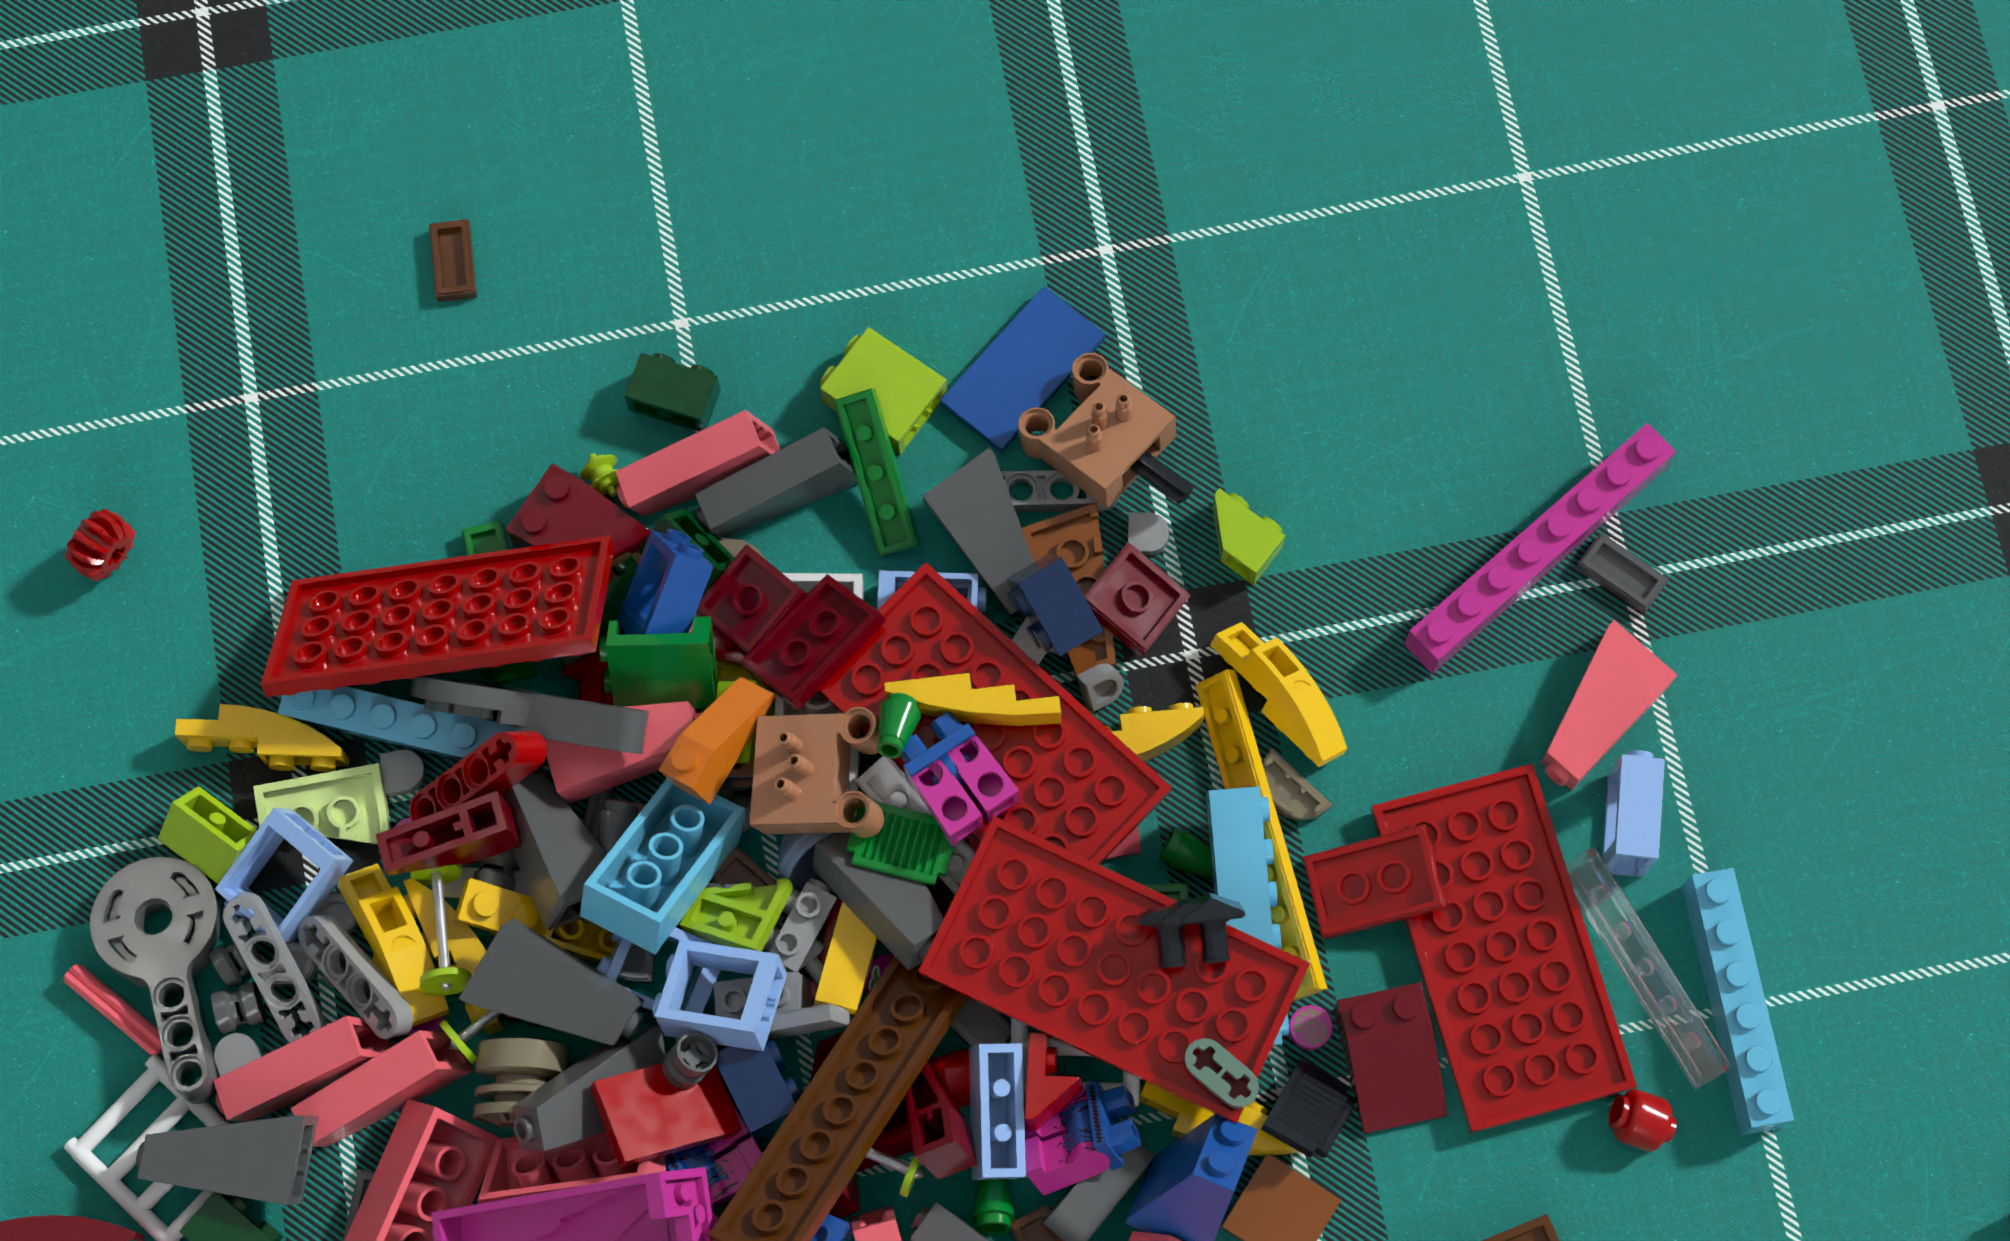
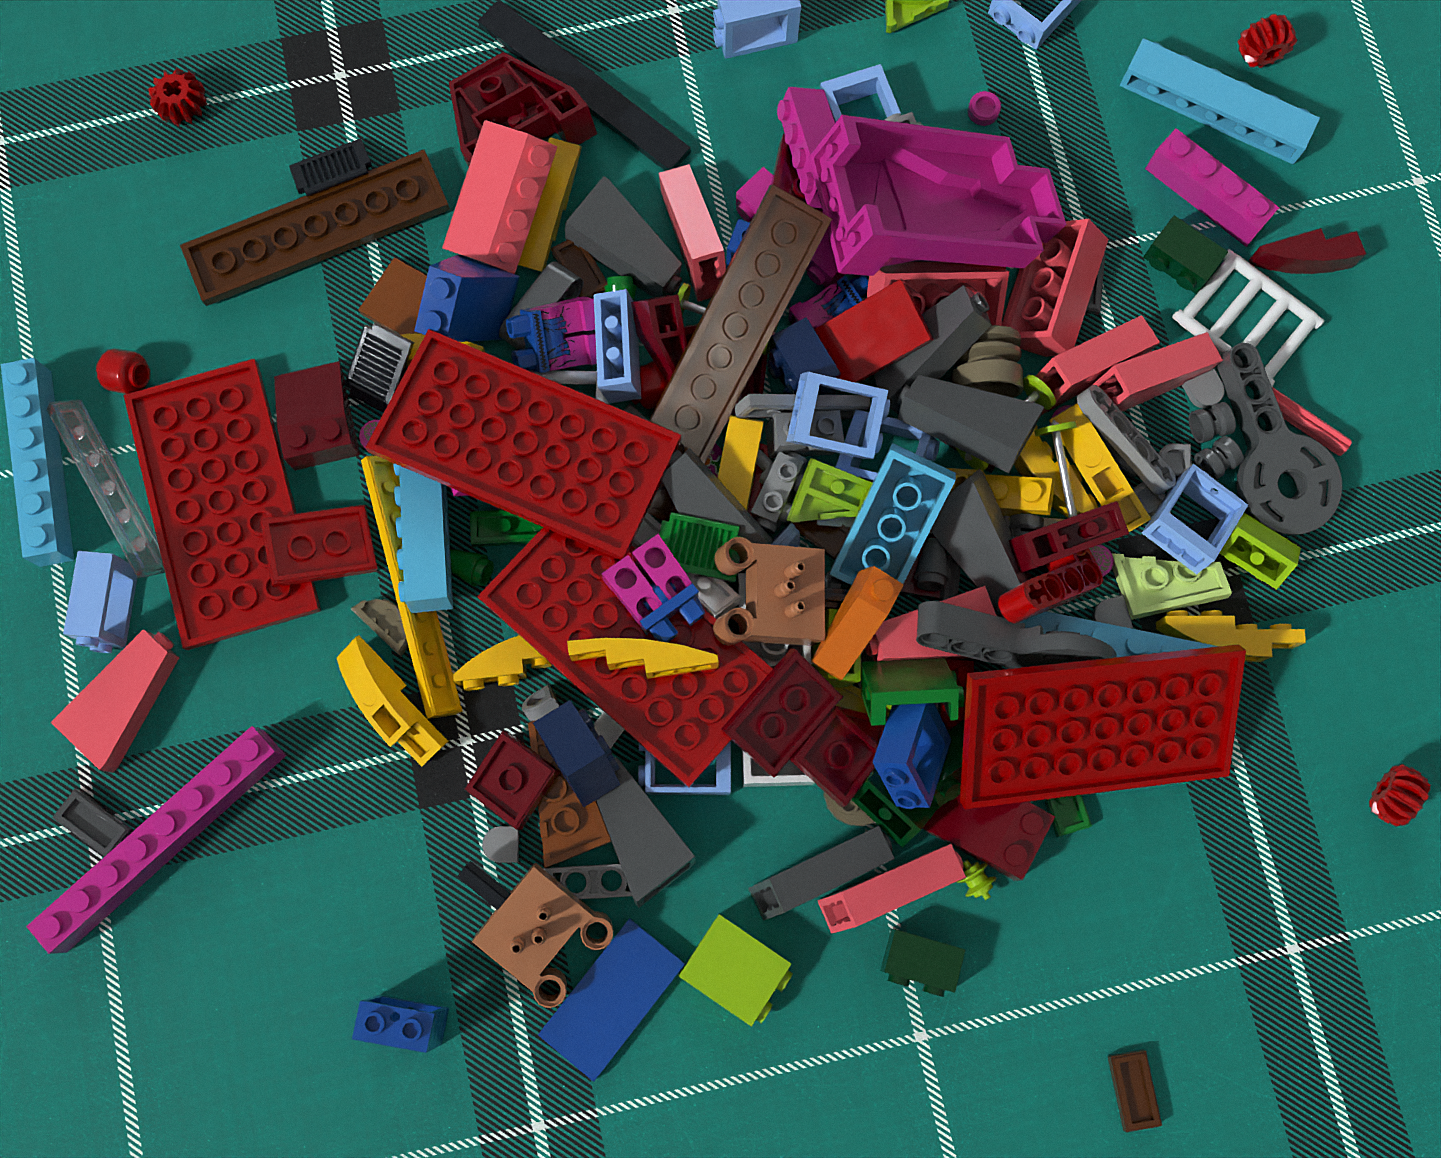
camera: 175 degrees right, 5 degrees up
(242, 1159) = (1197, 299): dark grey slope -> none
(267, 972) = (1217, 470): light grey beam -> none
(690, 1060) = (850, 365): dark grey wheel -> none
(877, 472) = (737, 887): green tile -> none
(896, 723) = (706, 625): green cone -> none
(1046, 1093) = (578, 355): red slope -> none
(1209, 911) = (455, 472): black connector -> none
(1228, 1065) = (434, 365): sand green beam -> none
(1233, 344) = (392, 1024): none -> blue window
(1244, 539) = (418, 839): lime slope -> none

